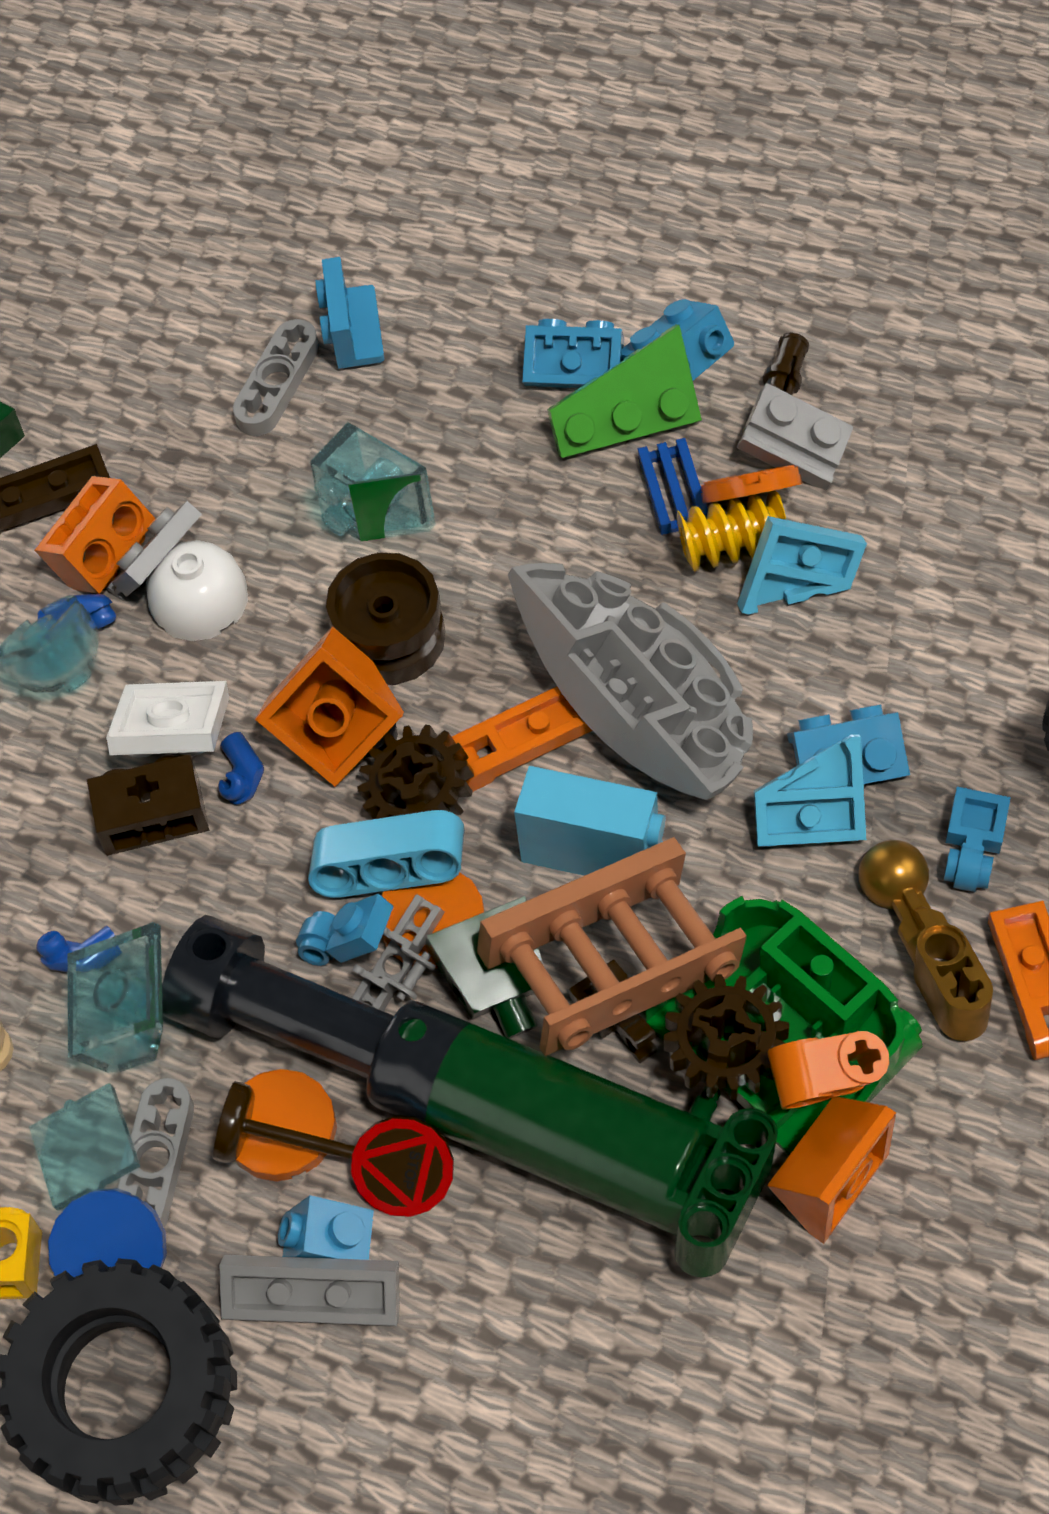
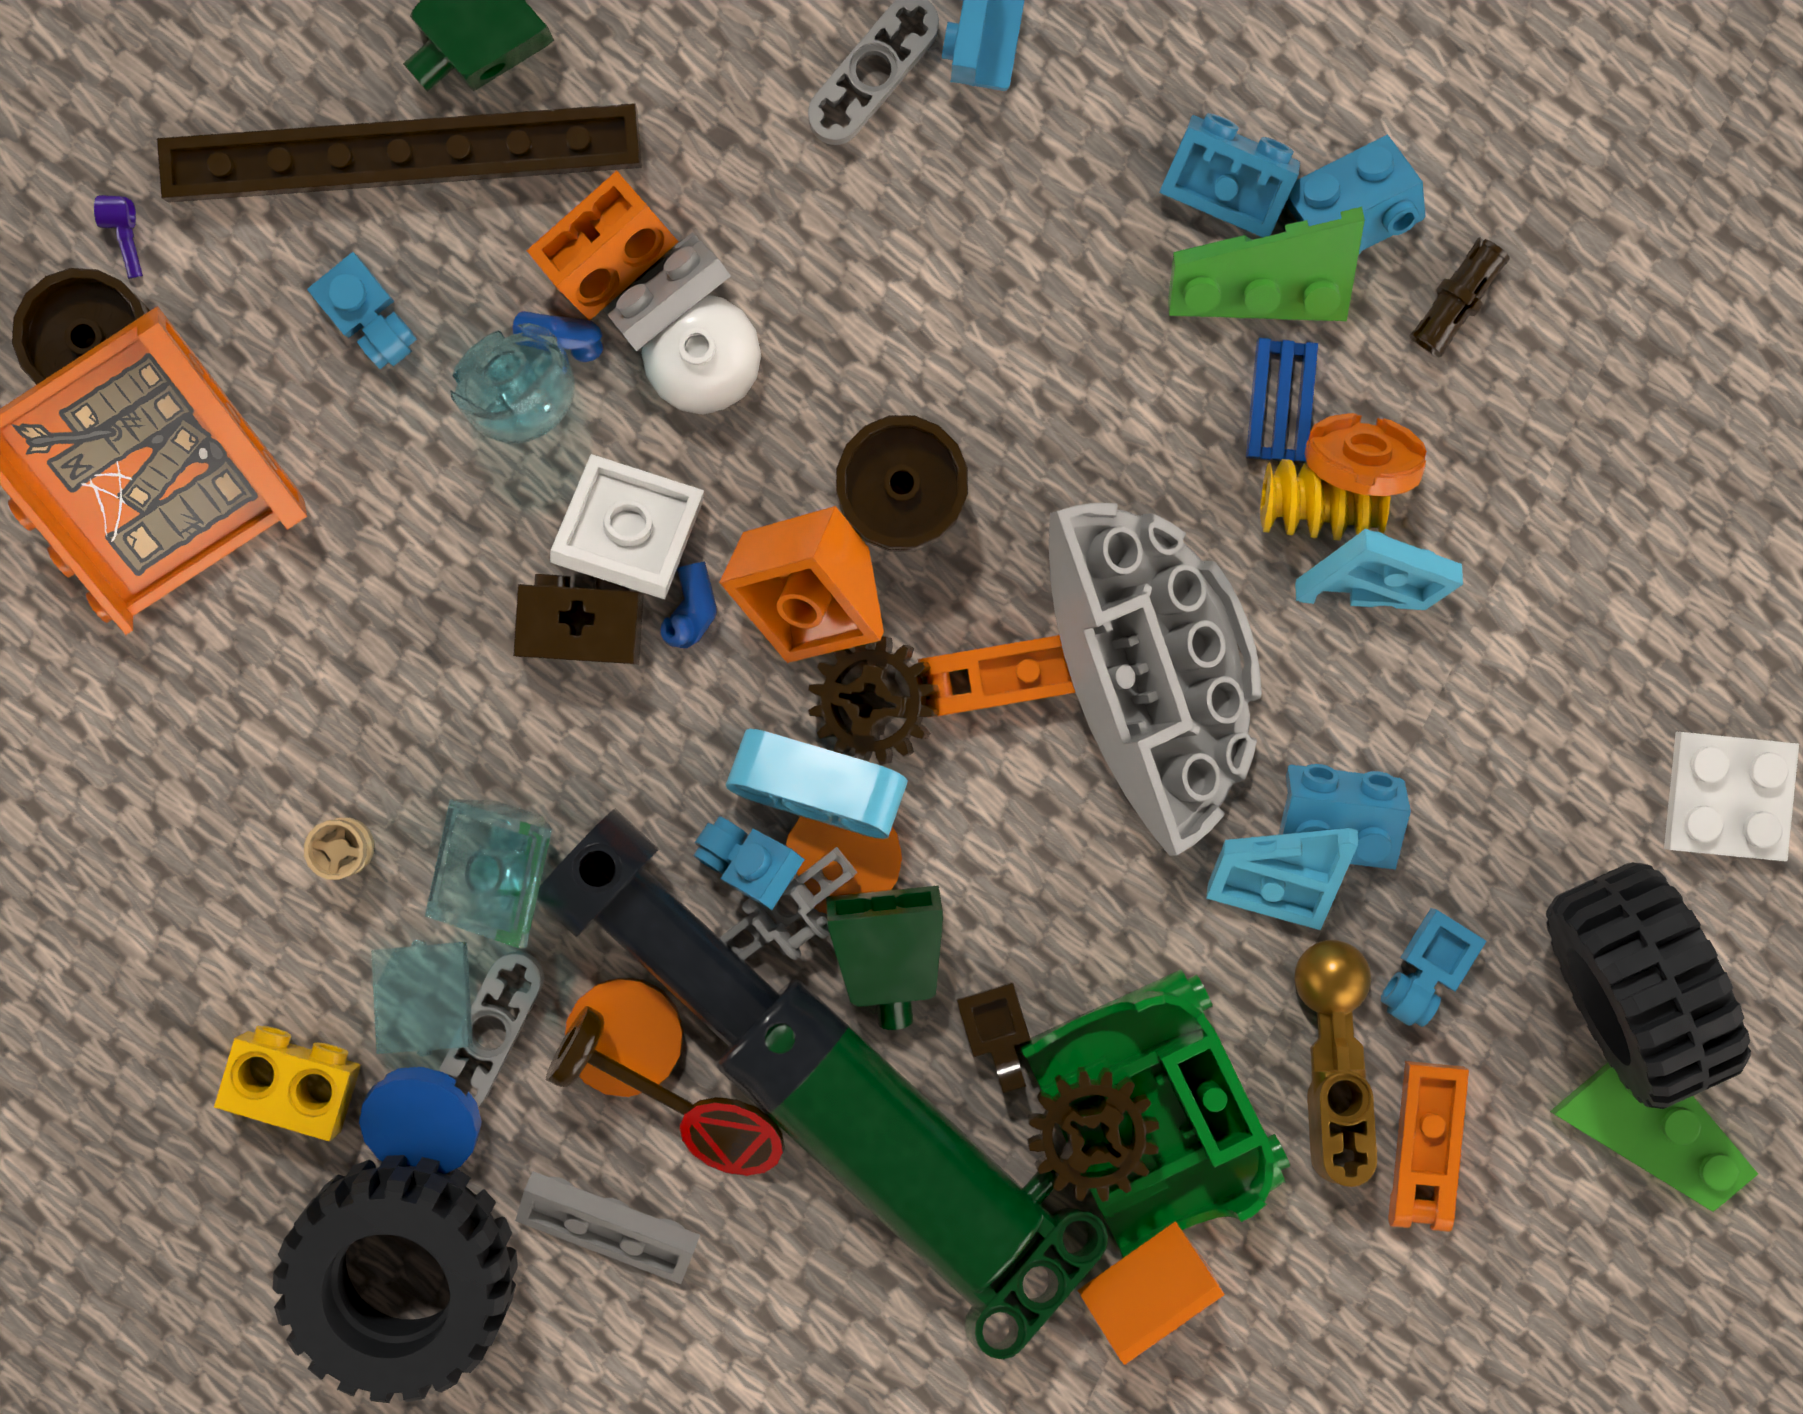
camera: 10 degrees right, 30 degrees up
(55, 948) = (460, 772): blue arm -> none
(326, 1230) = (637, 1174): dark azure bracket -> none
(370, 488) = (932, 302): clear light blue slope -> none
(583, 821) = (1039, 840): medium azure brick -> none
(608, 896) = (971, 961): nougat fence -> none
(795, 433) = (1442, 394): light grey plate -> none
(820, 1068) = (1173, 1217): orange piece -> none

